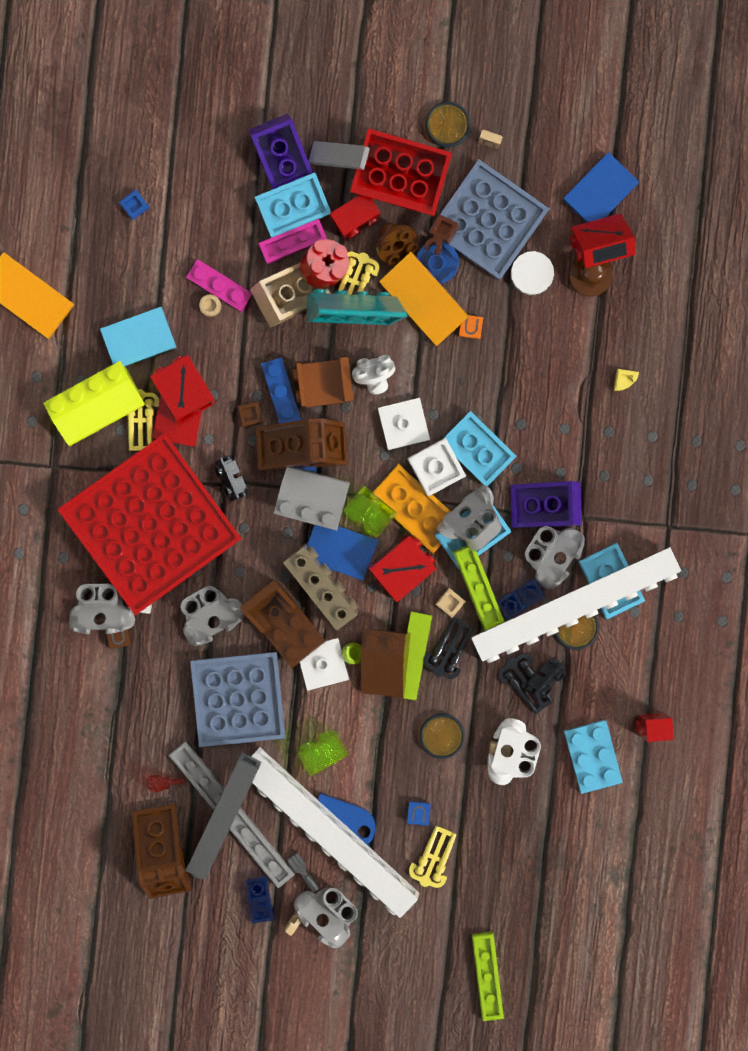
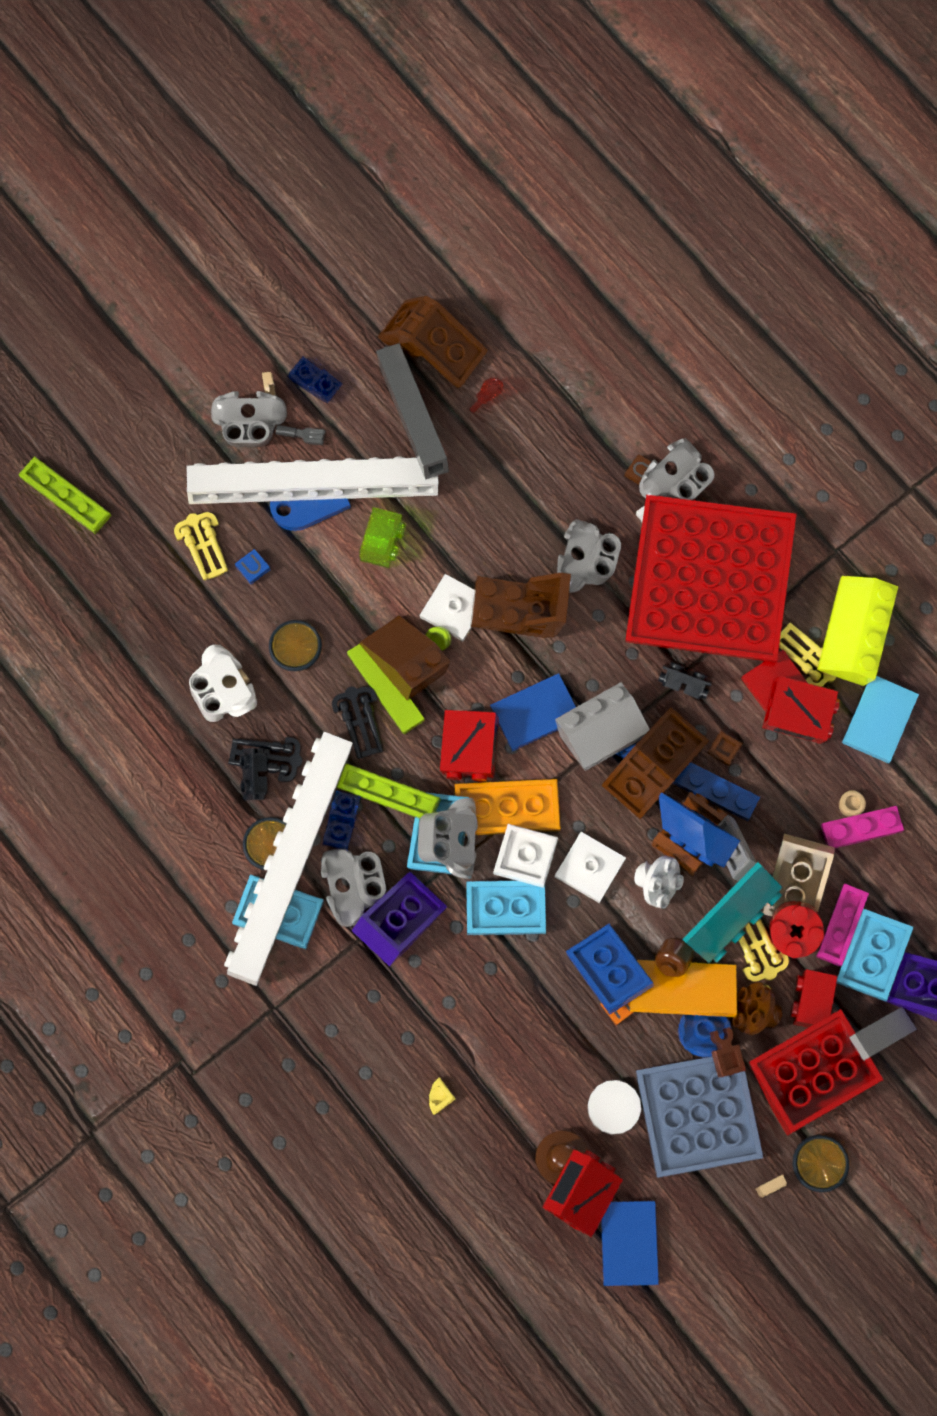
camera: 135 degrees right, 15 degrees down
(238, 699) = (494, 514): sand blue plate -> none
(242, 826) = (388, 422): light grey tile -> none
(316, 342) = (742, 858): none -> light grey tile
(321, 587) = (520, 664): dark tan brick -> none
(326, 374) = (696, 832): none -> blue slope
(370, 511) = (543, 764): clear neon green brick -> none
(416, 320) = (674, 957): none -> reddish brown head
(450, 602) = (398, 759): tan tile -> none
(455, 352) = (609, 968): none -> blue tile
(593, 756) = (148, 751): medium azure plate -> none
(654, 727) = (120, 820): red brick -> none

